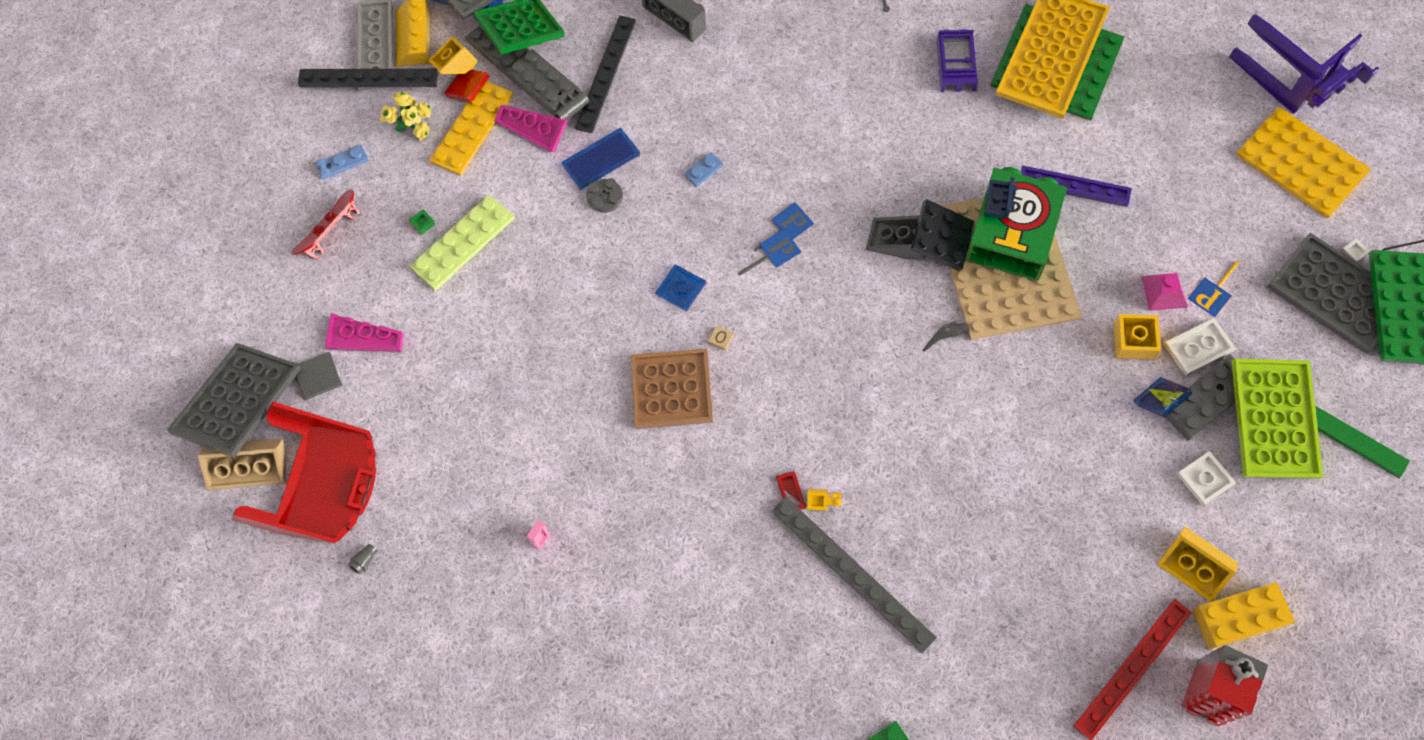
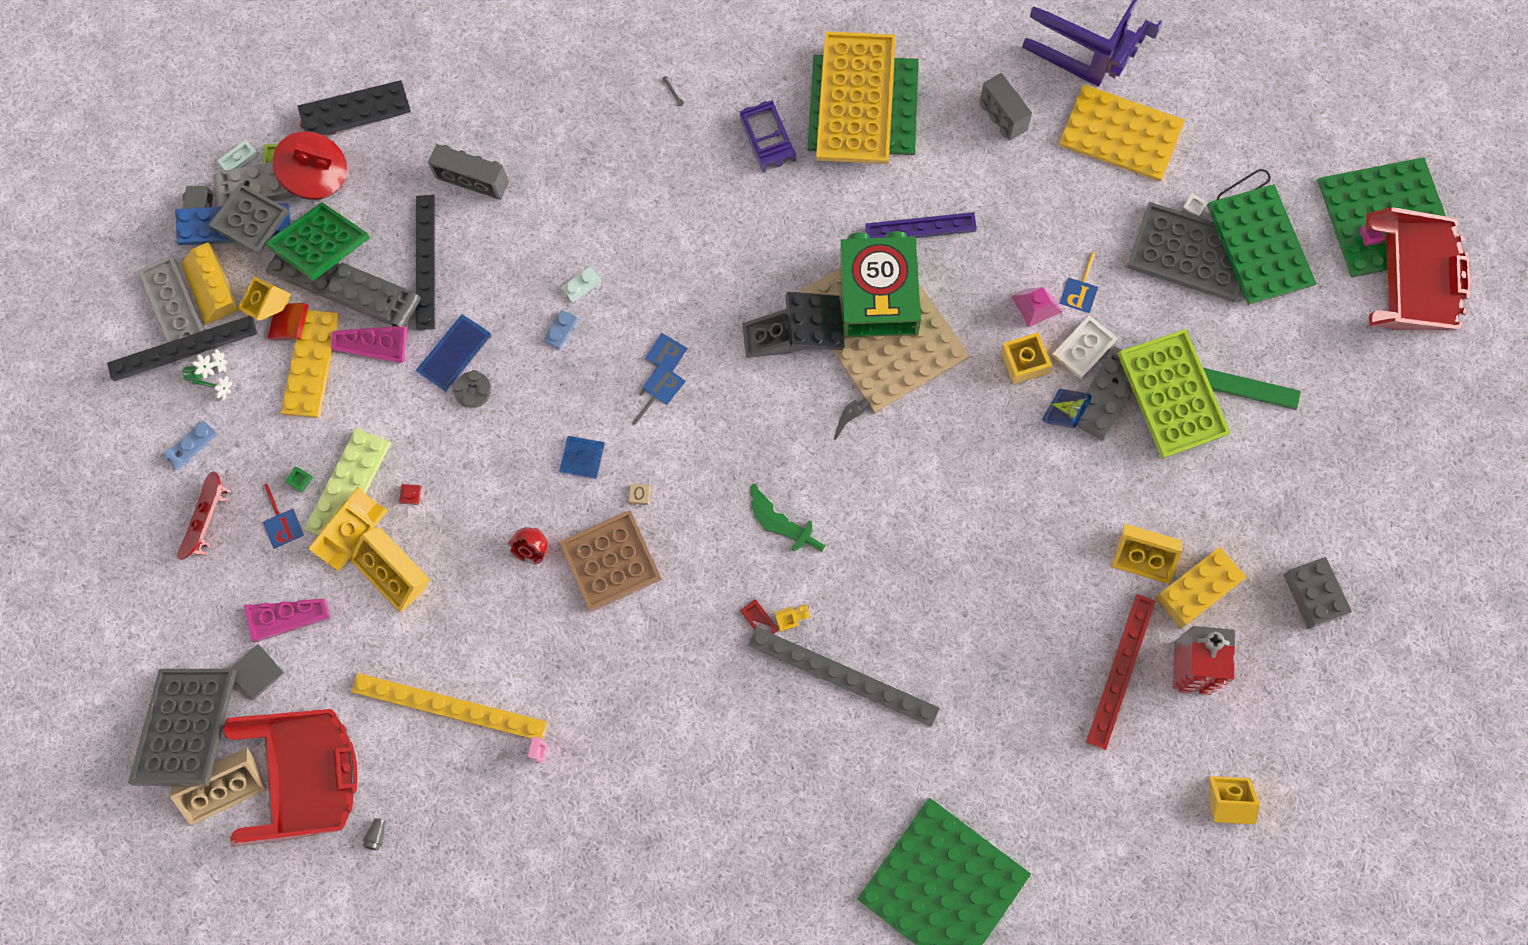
camera: 20 degrees left, 5 degrees up
(370, 102) = (201, 368): none -> white plant
(393, 258) = (282, 527): none -> blue piece
(408, 114) = (243, 377): light yellow plant -> none
(446, 278) = (345, 528): none -> yellow piece
(469, 326) = (389, 568): none -> yellow slope
(475, 468) = (449, 706): none -> yellow plate
(514, 268) = (410, 494): none -> red plate
(601, 344) = (526, 542): none -> red cylinder
(737, 136) = (581, 284): none -> light aqua plate
(843, 411) = (780, 523): none -> green sword
(999, 198) = (857, 270): dark blue bracket -> none
(1194, 102) = (1005, 107): none -> dark grey brick
(1206, 478) = (1129, 471): white plate -> none
(1365, 665) = (1317, 593): none -> dark grey brick

